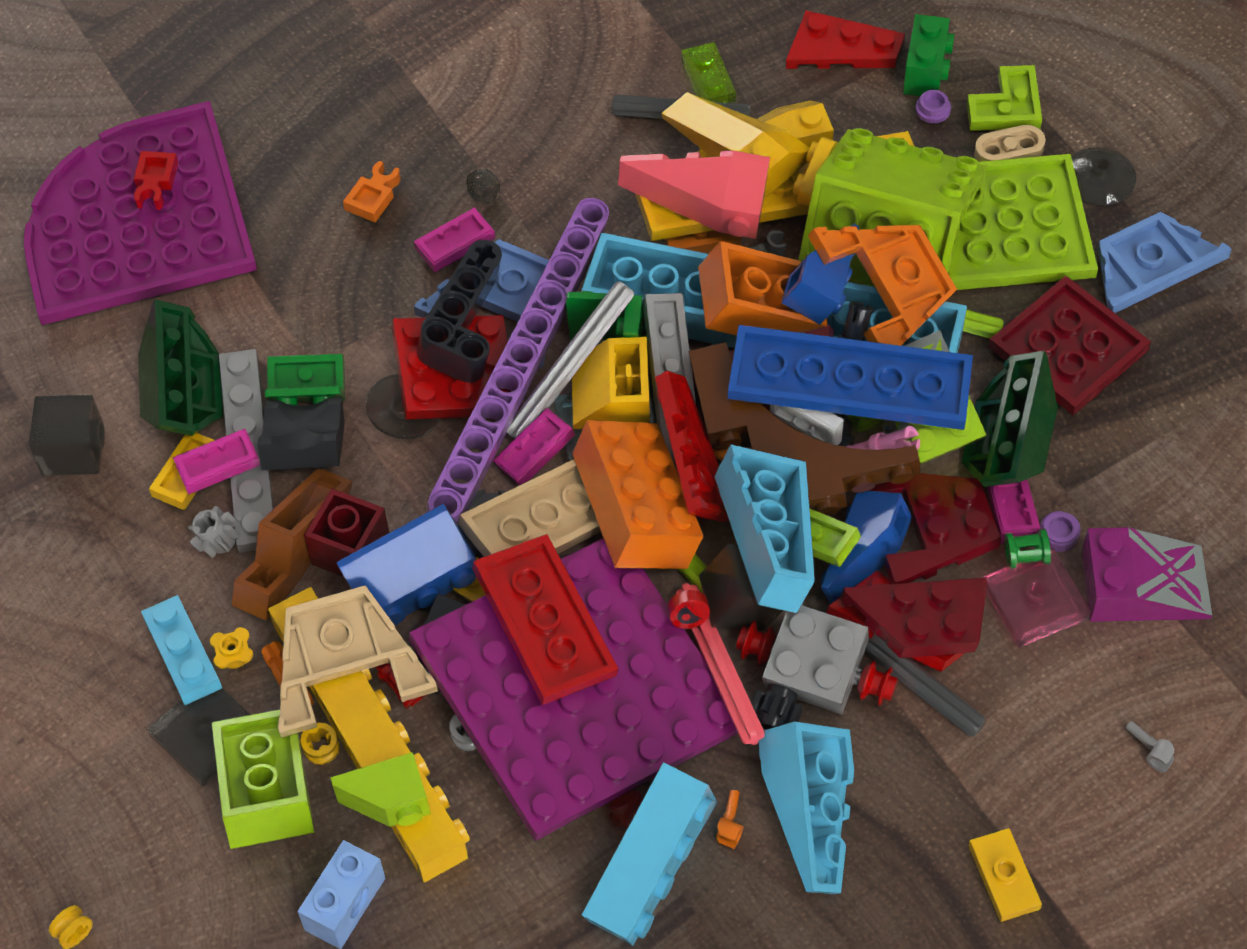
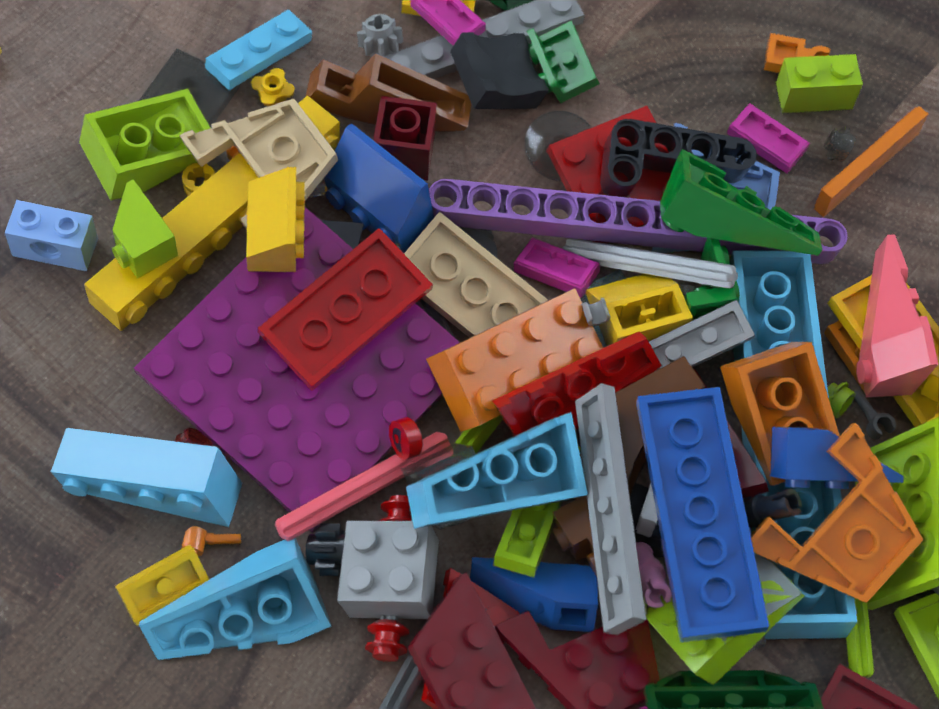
camera: 65 degrees right, 5 degrees up
(414, 180) = (819, 83): none -> lime brick
(442, 644) = (275, 222): none -> yellow slope
(510, 168) = (870, 161): none -> orange tile
(551, 277) = (710, 207): none -> green wedge
(616, 410) = (596, 313): none -> light grey hand
(770, 866) = (162, 583): none -> yellow plate
(829, 444) = (610, 511): none -> light grey plate

